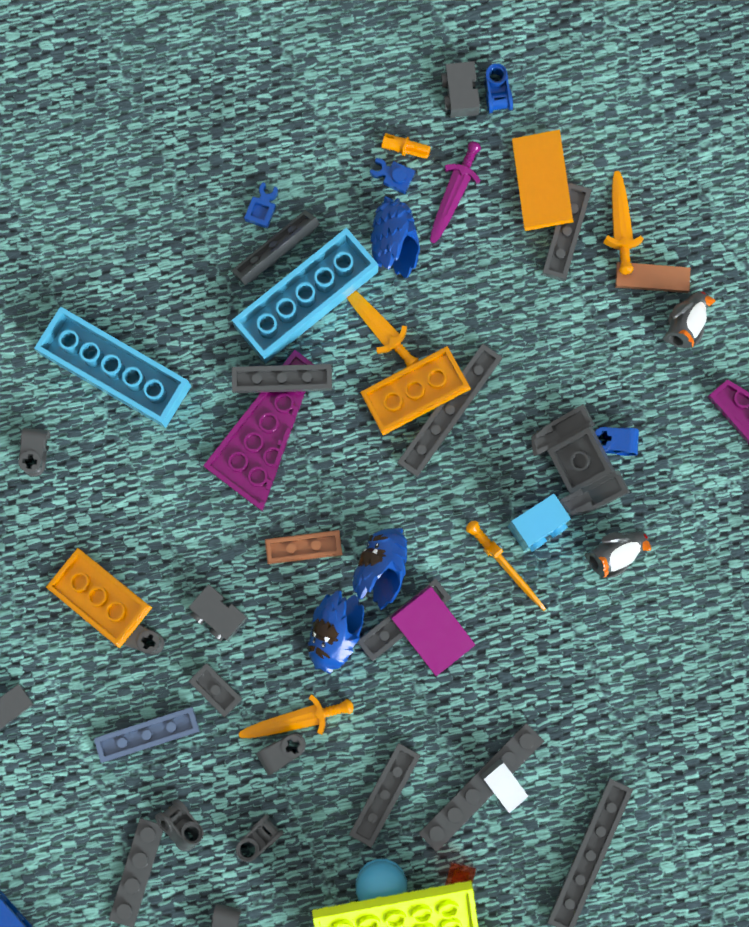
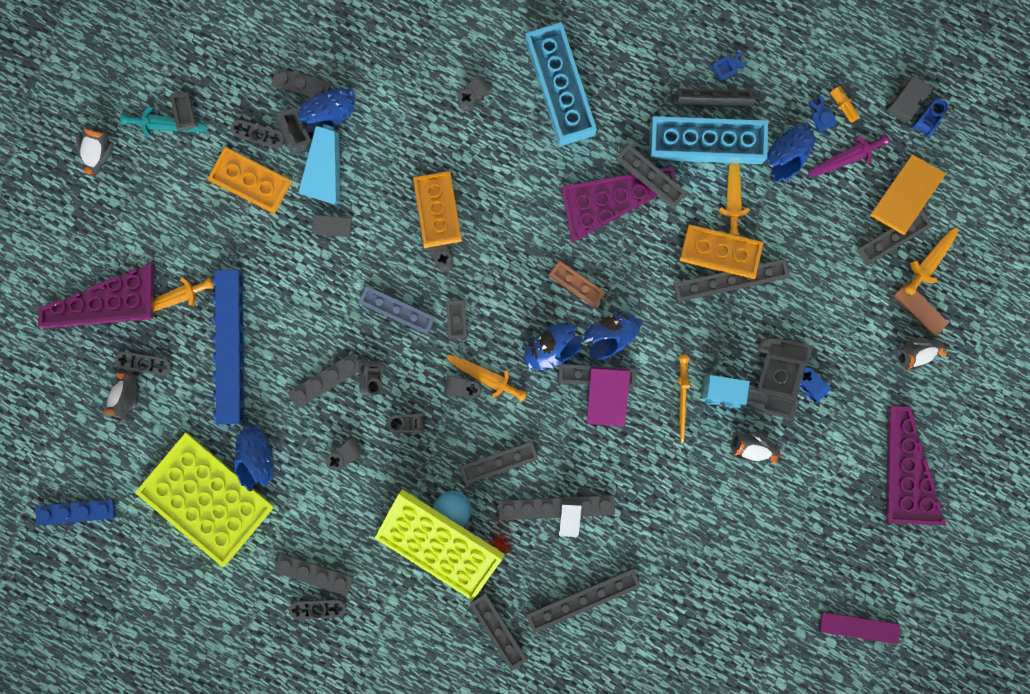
camera: 45 degrees right, 5 degrees up
(210, 609) = (494, 272): dark grey brick -> none

